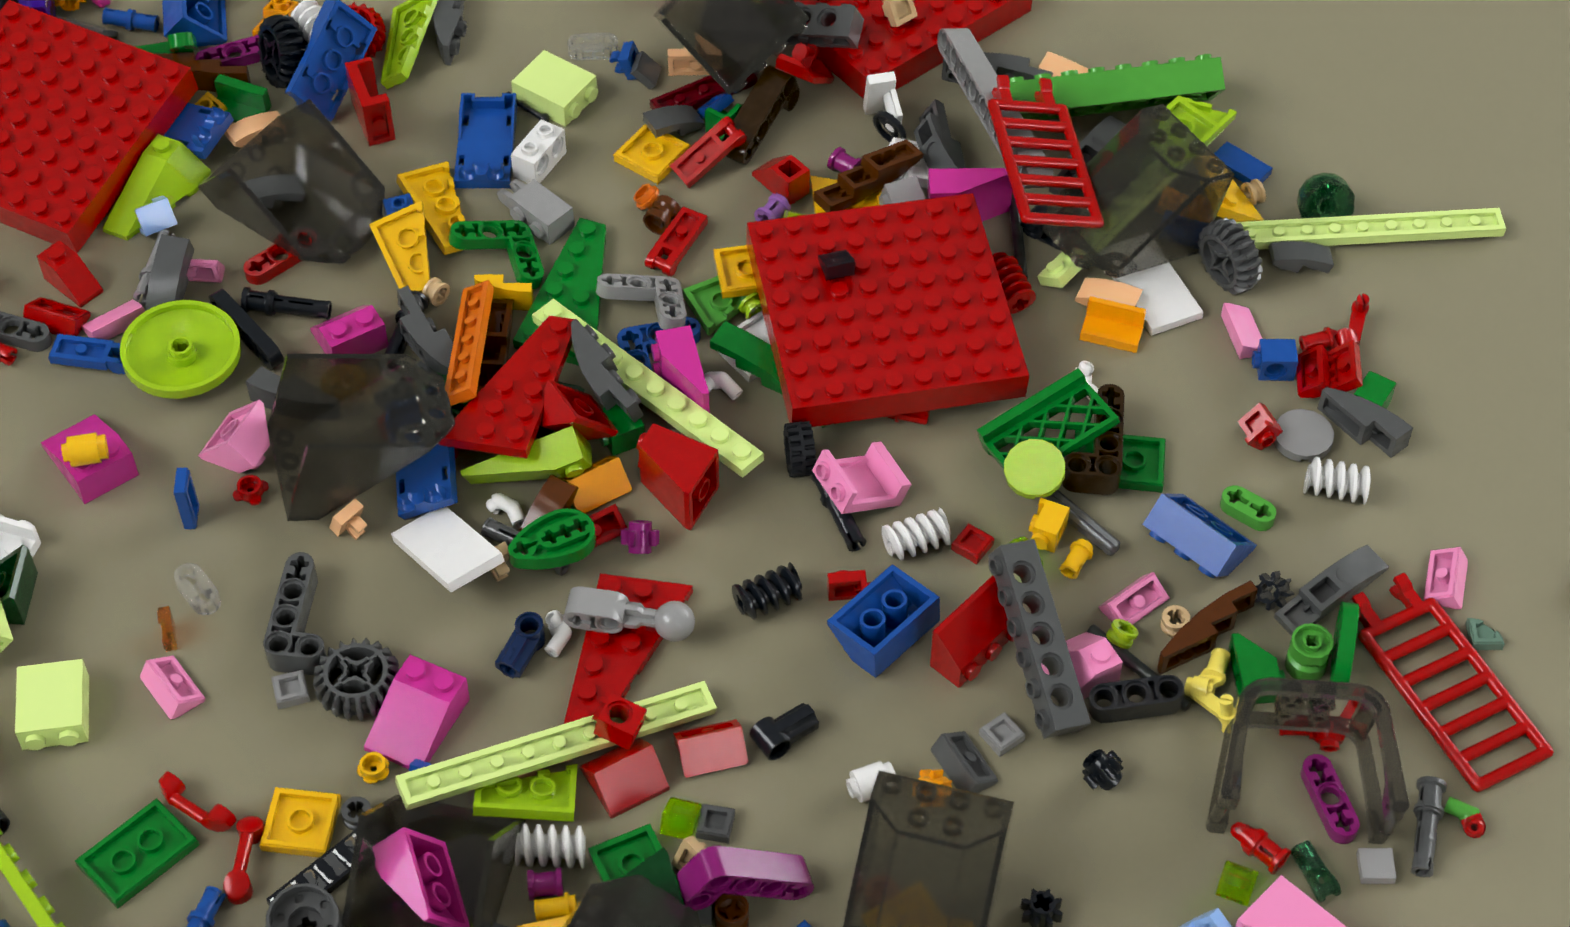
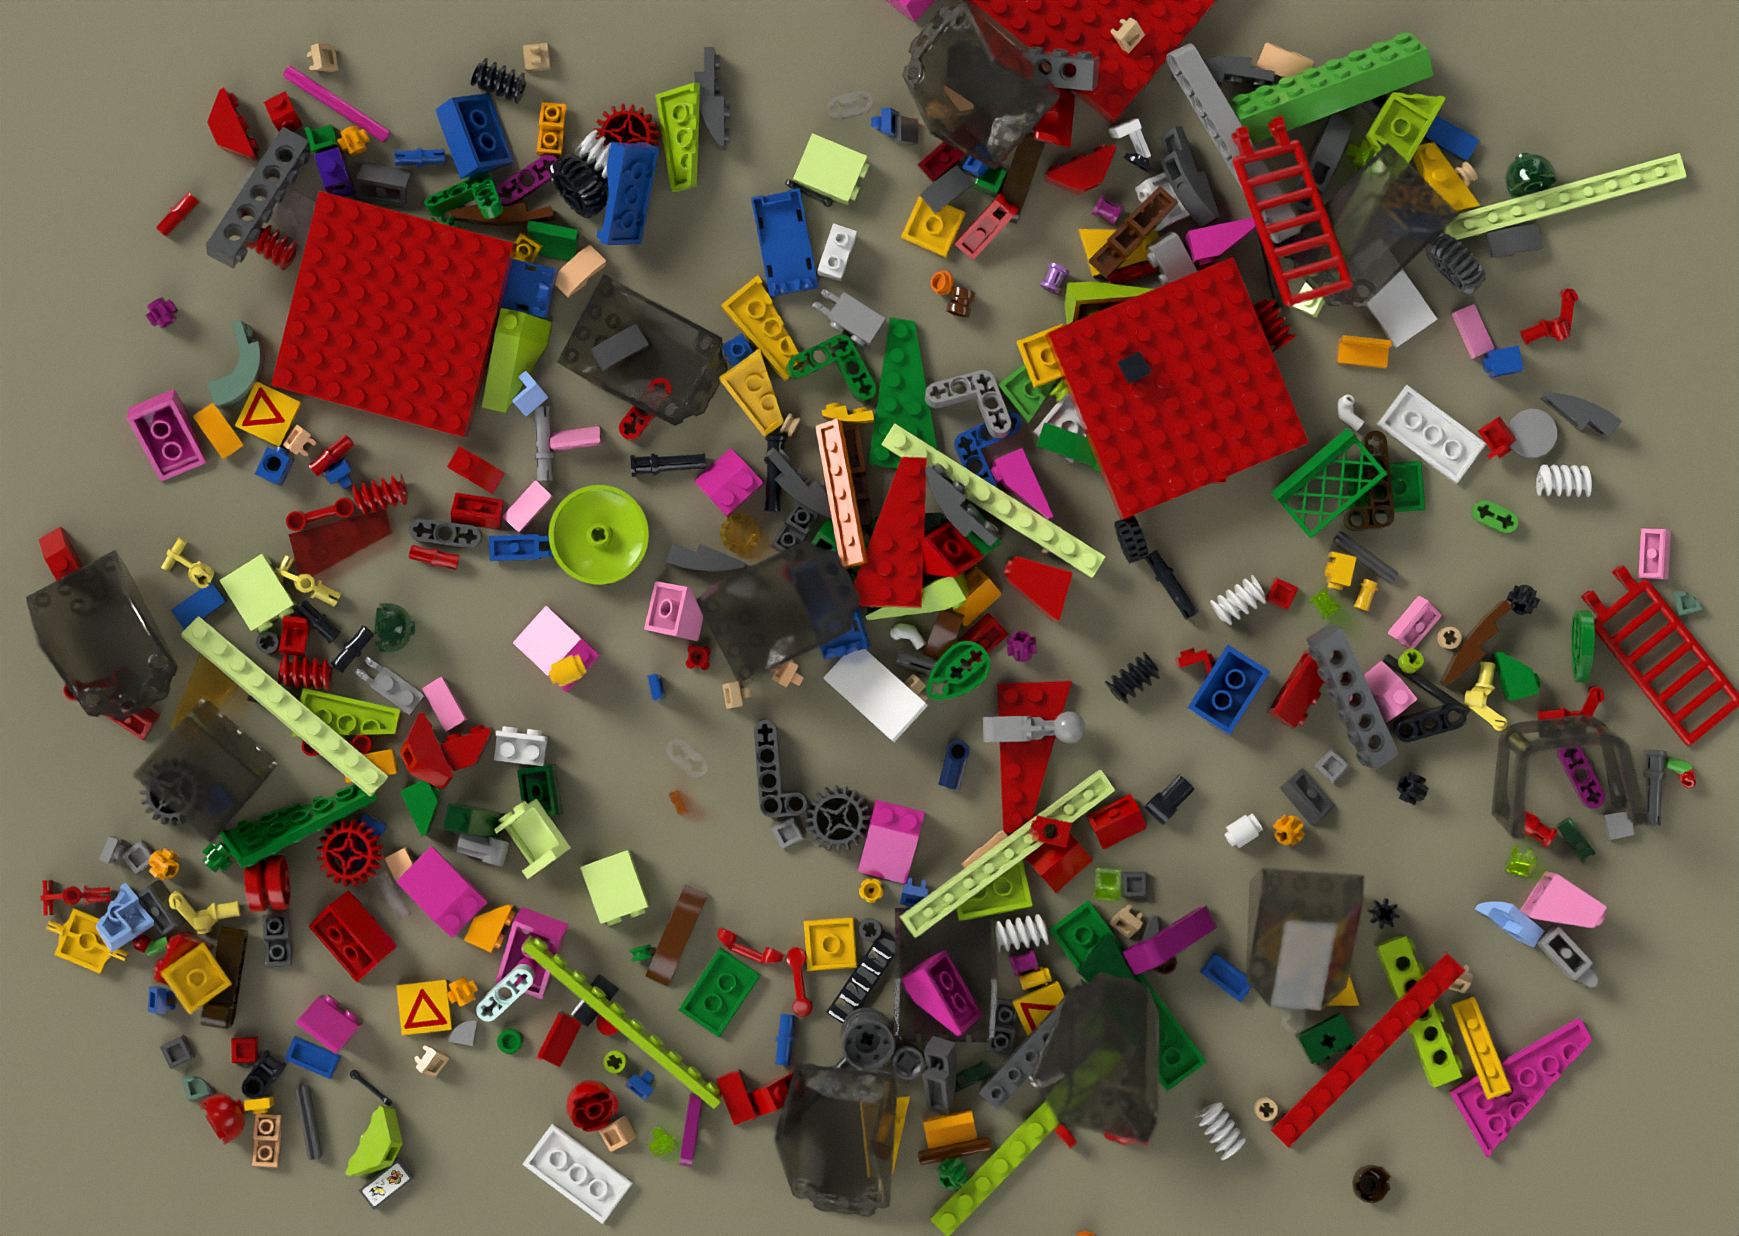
camera: 15 degrees left, 35 degrees up
(54, 784) = (641, 953): none -> green bush
(102, 774) = (676, 935): none -> reddish brown slope
(169, 271) = (564, 465): dark grey slope -> none
(171, 686) = (696, 847): bright pink slope -> none
(248, 330) = (643, 497): black beam -> none
(280, 530) = (734, 695): none -> tan tile
(370, 107) = (684, 249): red panel -> none
(560, 633) = (975, 736): white arm -> none
(676, 240) = (979, 326): red plate -> none
(721, 380) = (1052, 473): white arm -> none
(785, 176) = (1055, 239): red slope -> none
(826, 129) = (1083, 172): none -> red slope
(862, 481) = (1186, 559): bright pink panel -> none
(1034, 468) = (1325, 530): lime tile -> none
(1108, 290) = (1357, 320): light nougat slope -> none
(1182, 419) = (1431, 434): none -> white tile
(1197, 535) = (1460, 554): slope -> none
(1309, 652) = (1556, 654): bright green wheel -> none
(1330, 588) = (1569, 591): dark grey slope -> none
(1332, 369) = (1548, 367): red slope -> none
(1376, 389) = (1587, 385): green panel -> none

